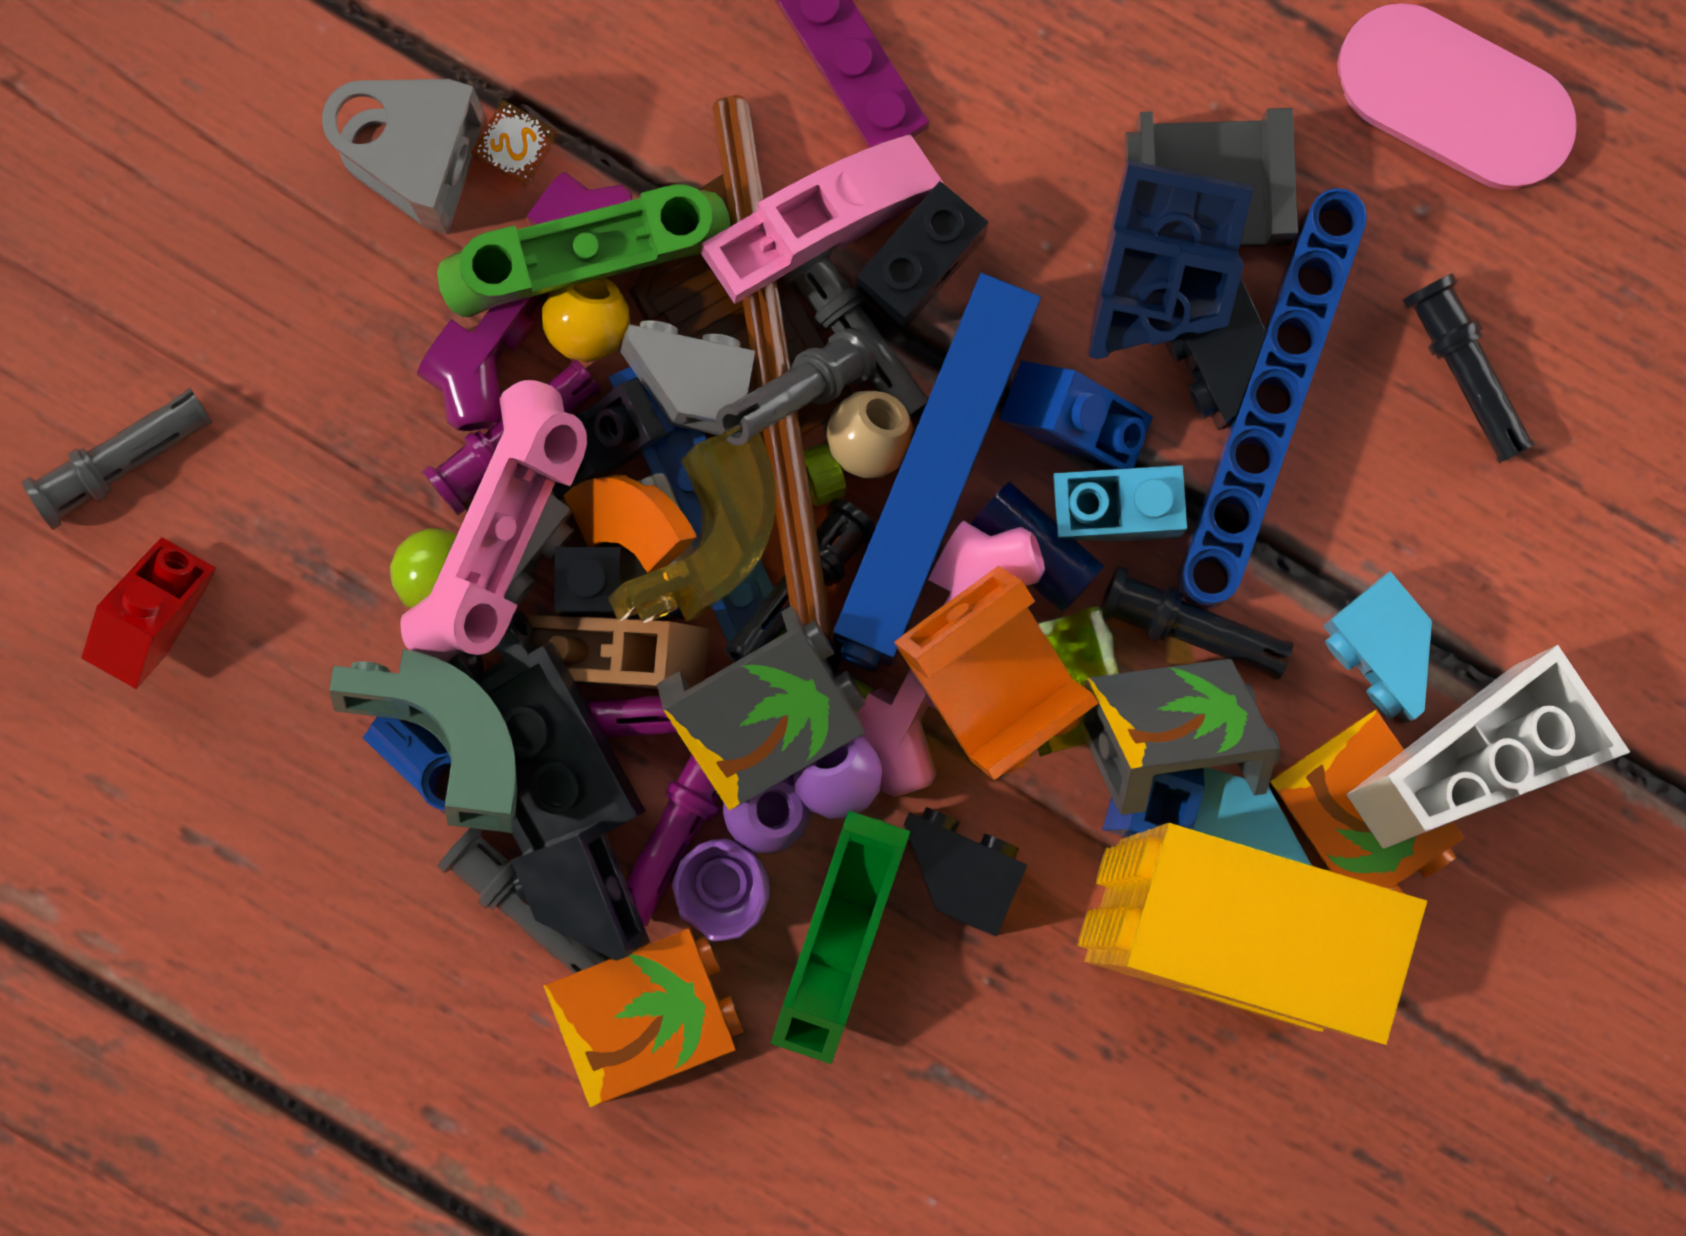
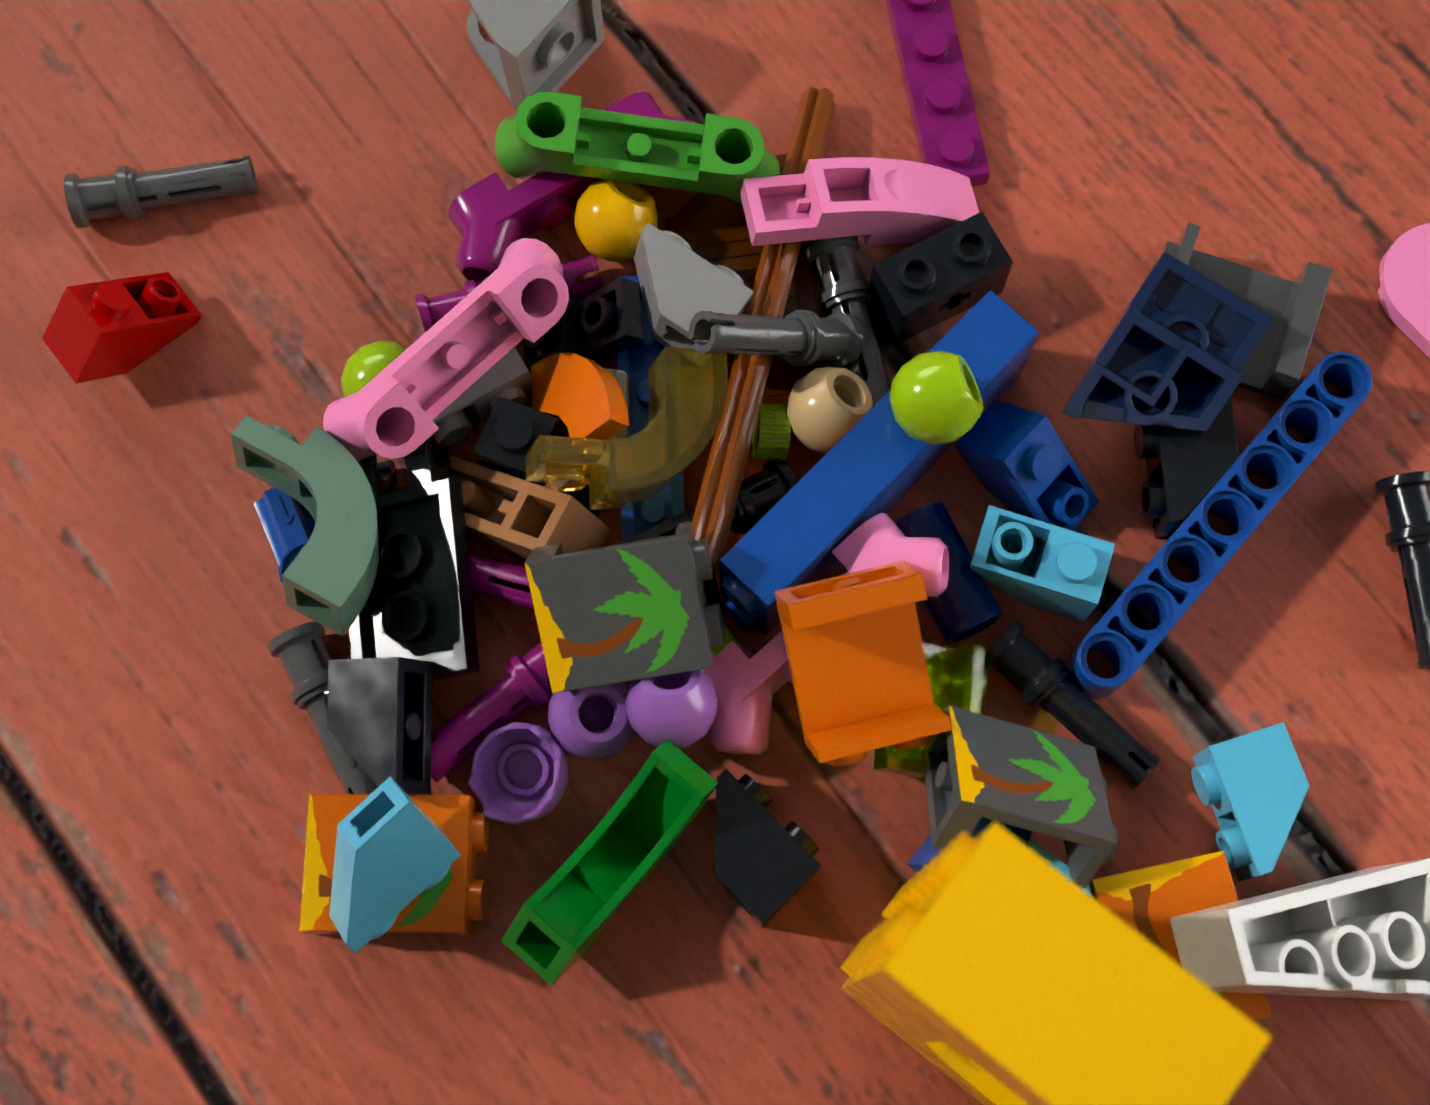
camera: 25 degrees right, 10 degrees down
(514, 143) = (619, 64): tile -> none
(645, 1020) = (383, 861): none -> medium azure slope
(972, 408) = (935, 397): none -> lime piece

